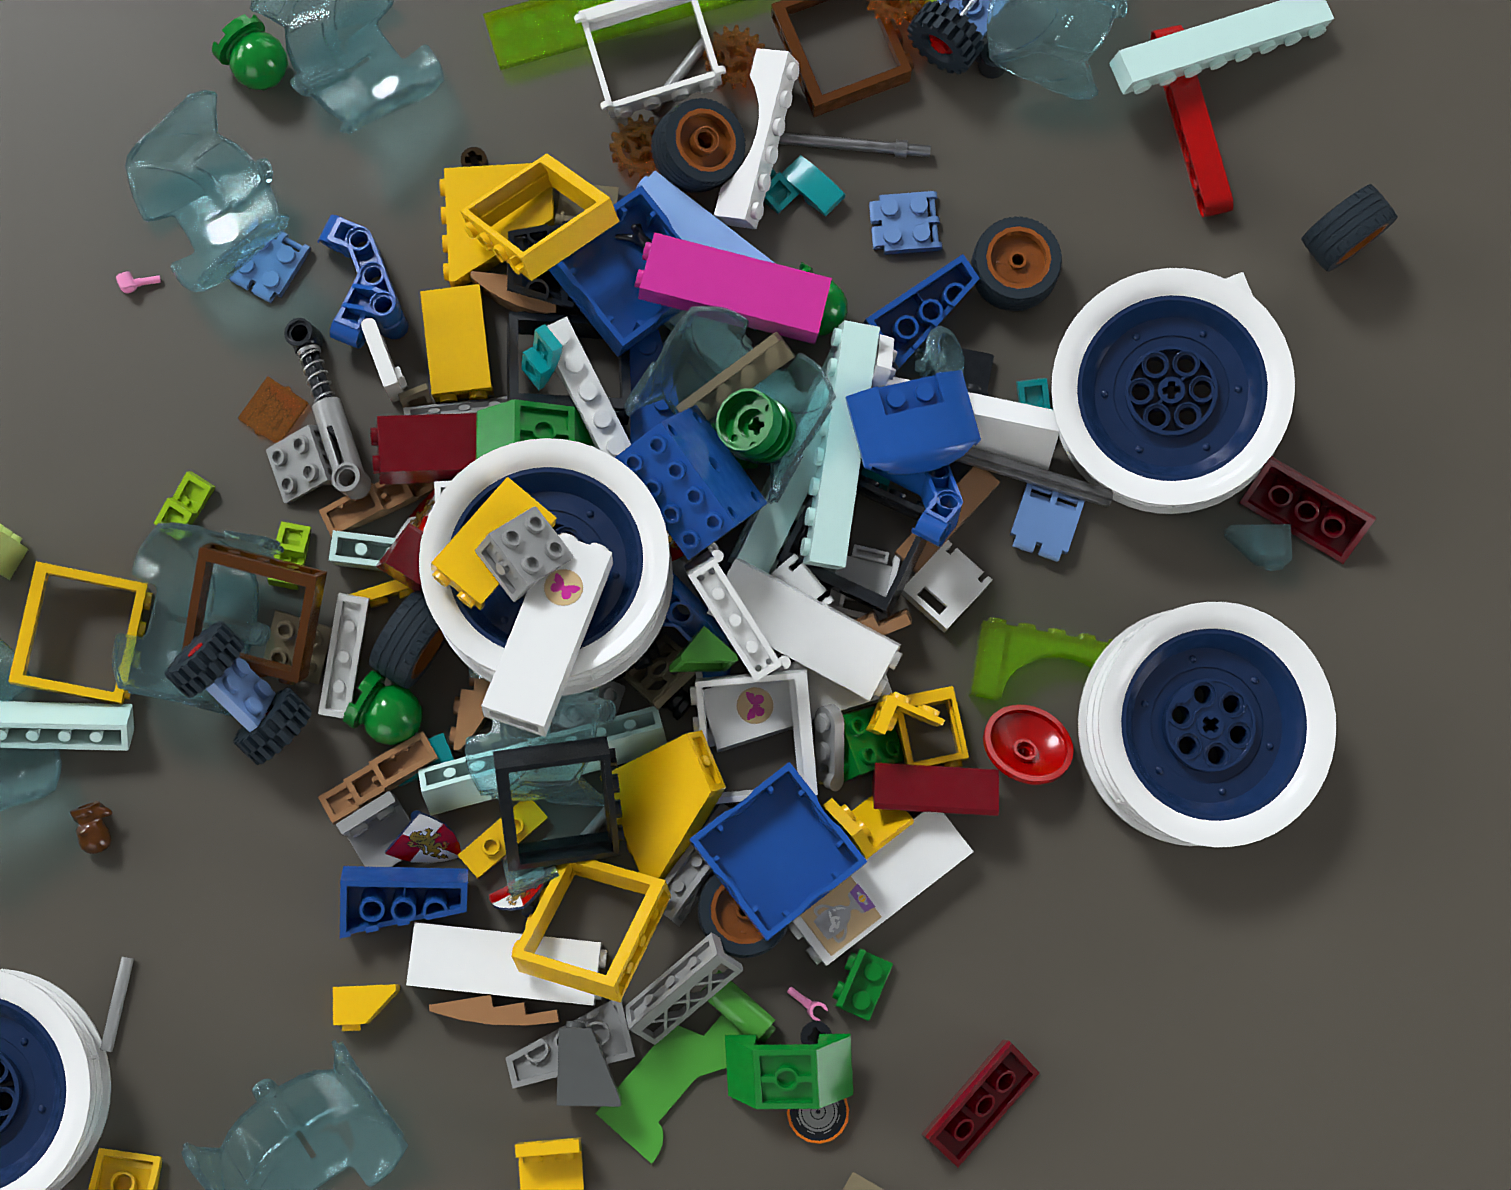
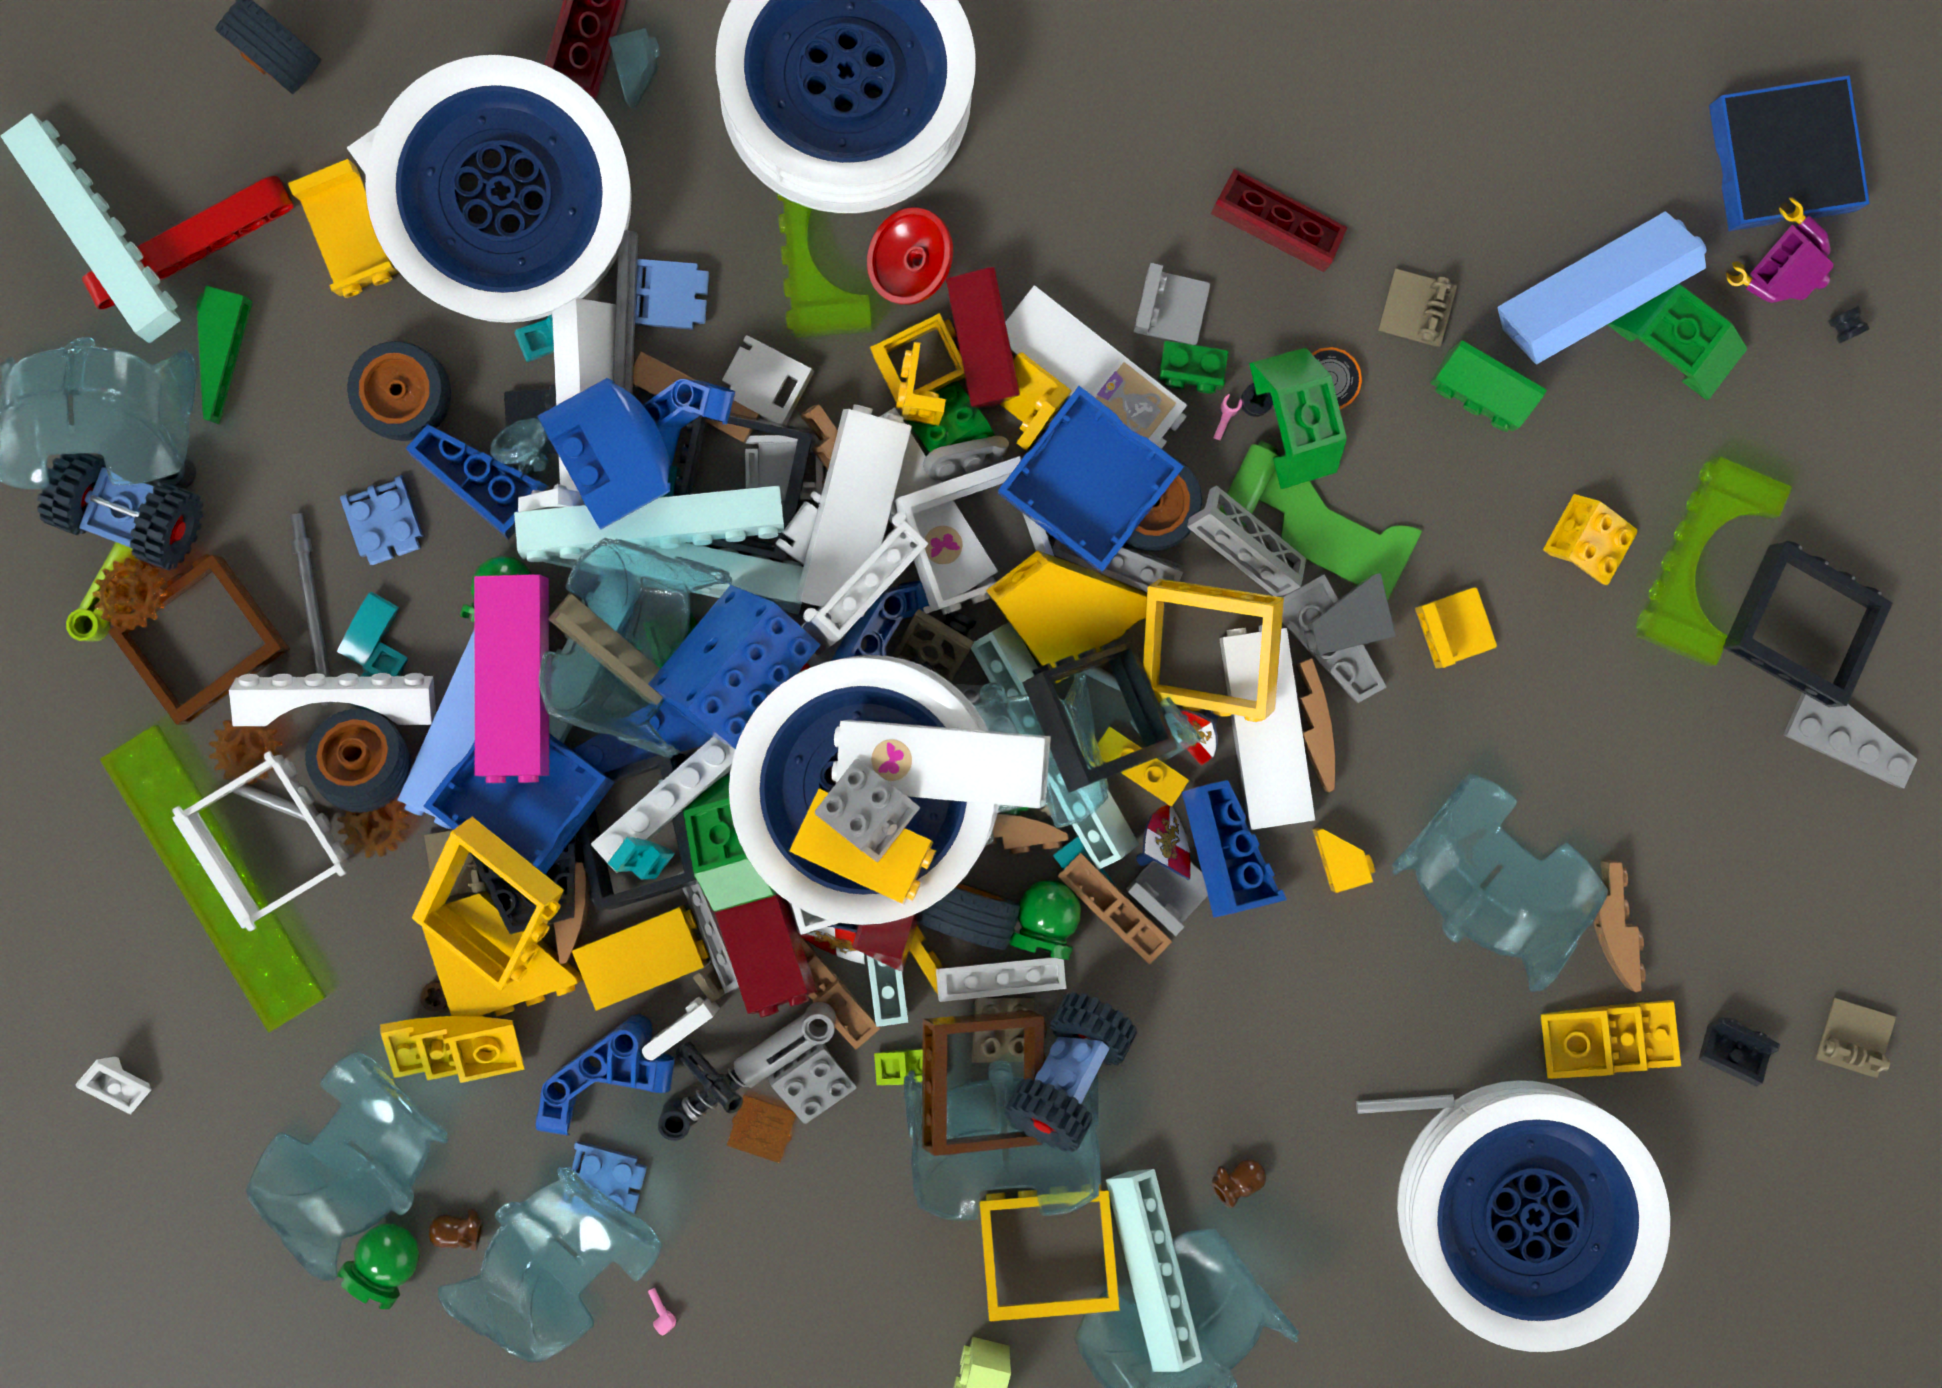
camera: 100 degrees left, 10 degrees up
(187, 501) = (883, 1189): lime slope -> none
(261, 124) = (453, 1232): none -> reddish brown animal
(322, 376) = (727, 1096): none -> black pin
(424, 161) = (452, 1046): none -> yellow slope
(638, 237) = (479, 795): black bar -> none
(704, 654) = (906, 610): bright green slope -> none
(756, 425) = (652, 631): green wheel -> none
(923, 977) = (1171, 306): none -> light grey bracket
(1102, 126) = (220, 333): none -> green slope
(1187, 247) = (343, 228): none -> yellow panel

